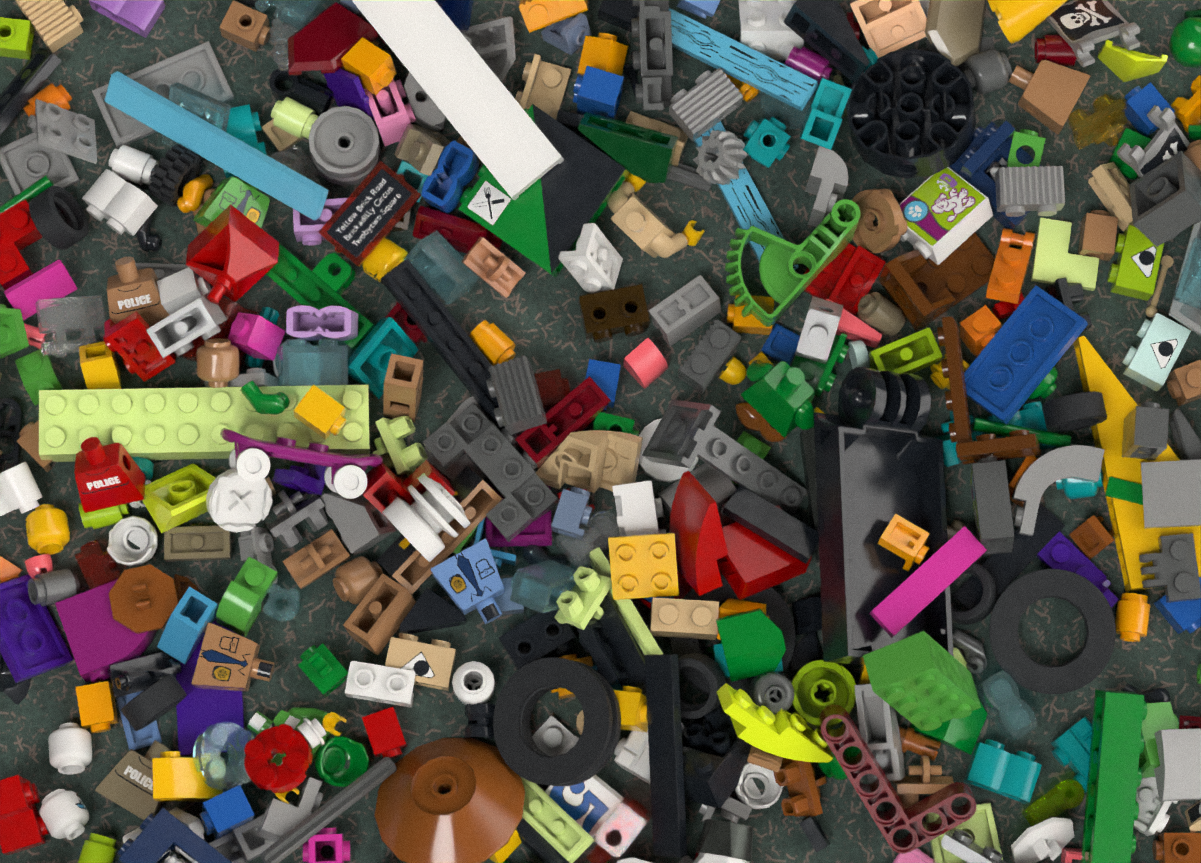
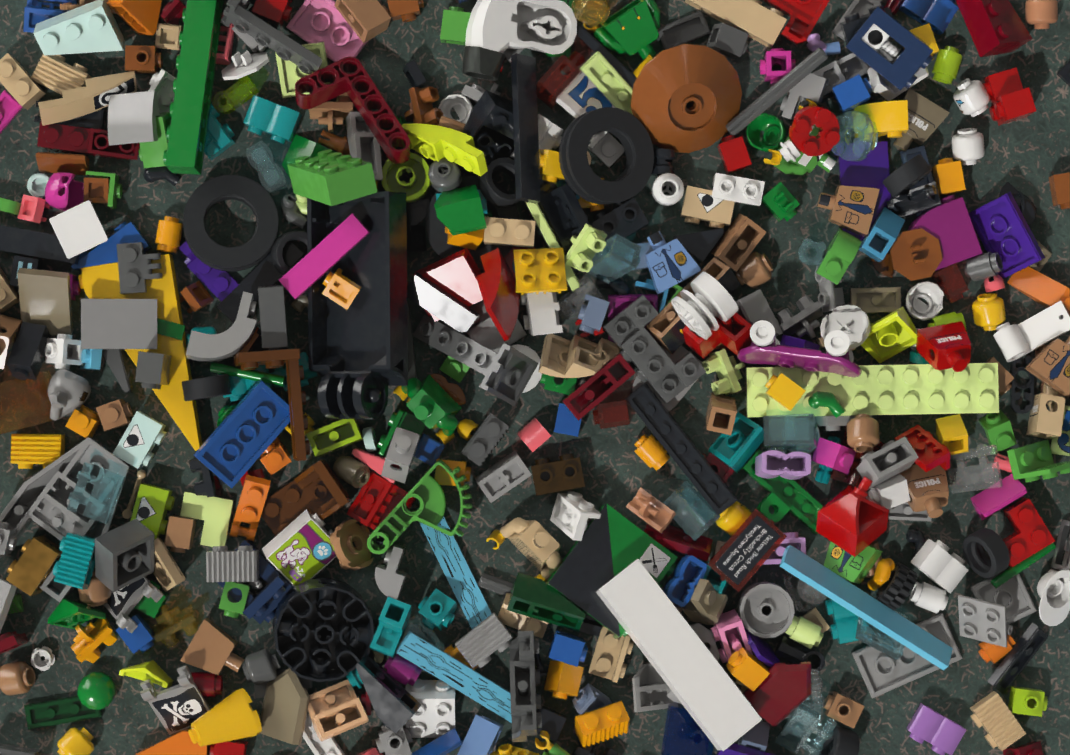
camera: 175 degrees left, 10 degrees up
(316, 559) = (786, 285): medium nougat hips -> none
(516, 394) = (634, 405): dark grey brick -> none
(720, 157) = (473, 595): light grey gear -> none

